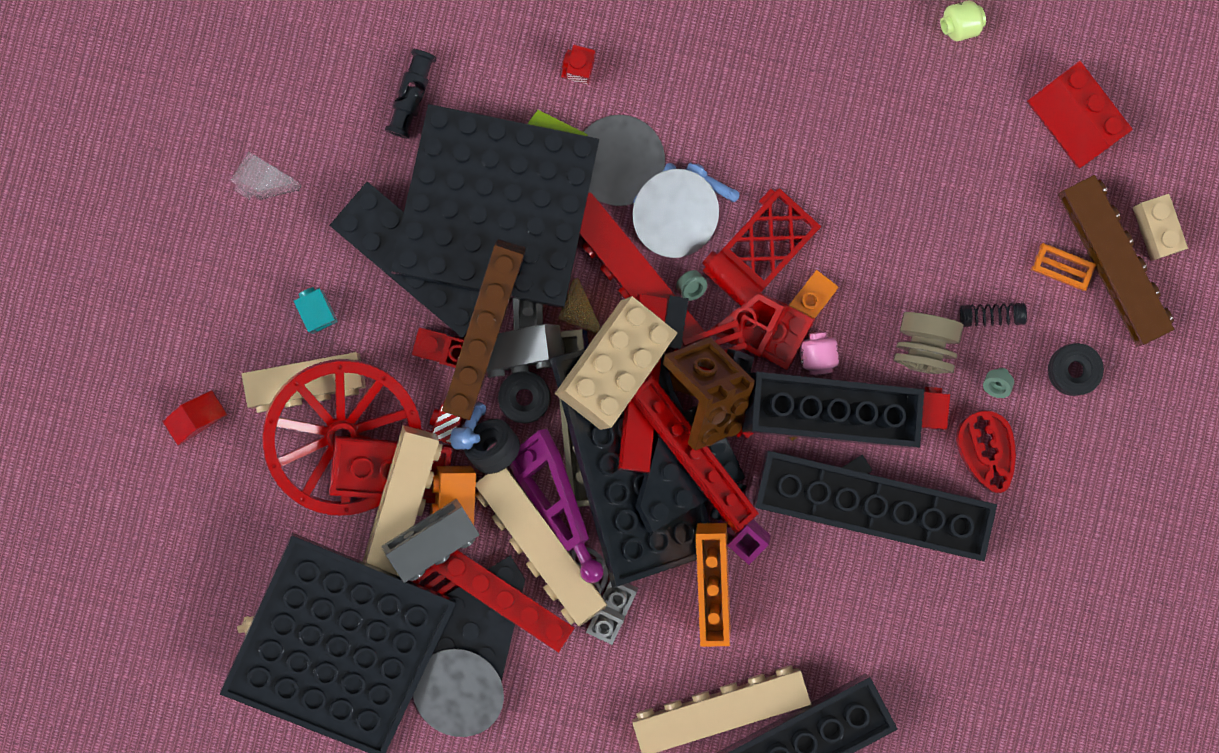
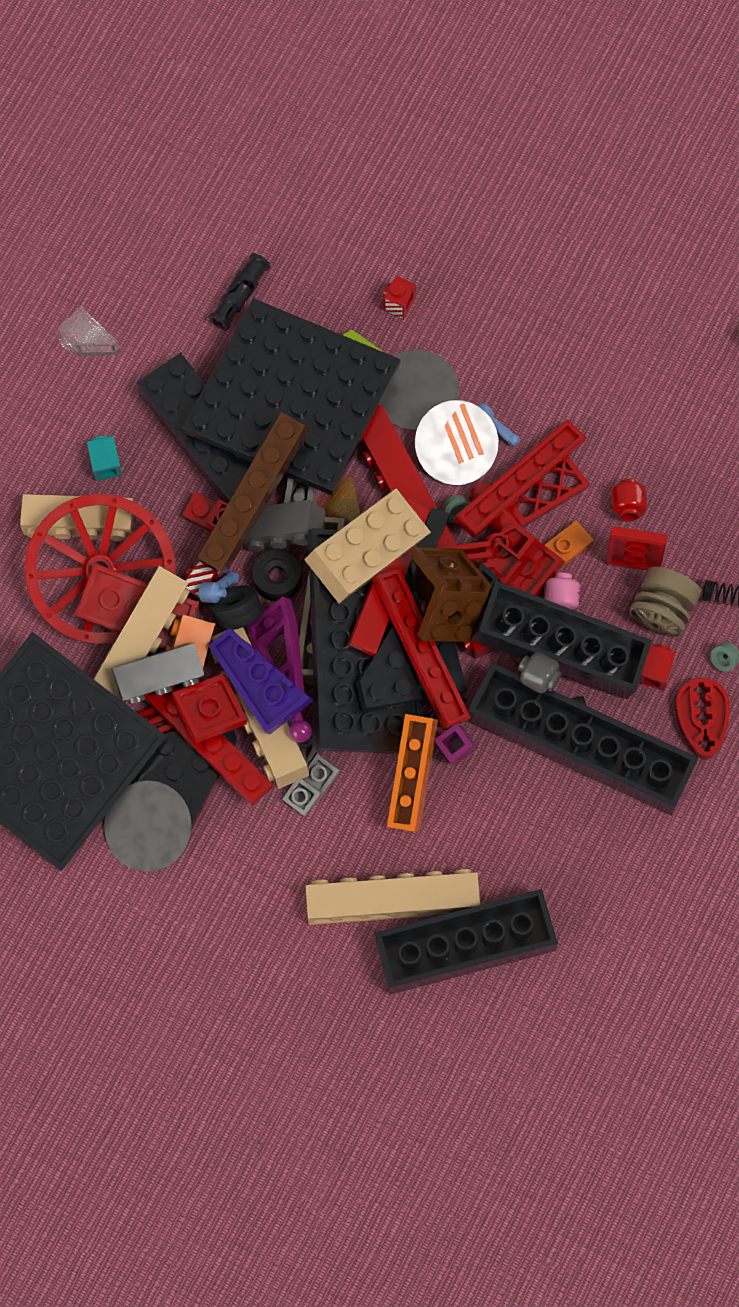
camera: 20 degrees right, 15 degrees down
(492, 565) = (209, 708): none -> red plate
(537, 529) = (262, 686): none -> dark purple wing
(681, 206) = (462, 435): none -> orange tile
(751, 241) = (520, 478): none -> red tile
(821, 455) = (540, 672): none -> dark grey head
(866, 237) = (629, 500): none -> red head
(889, 296) = (635, 548): none -> red tile

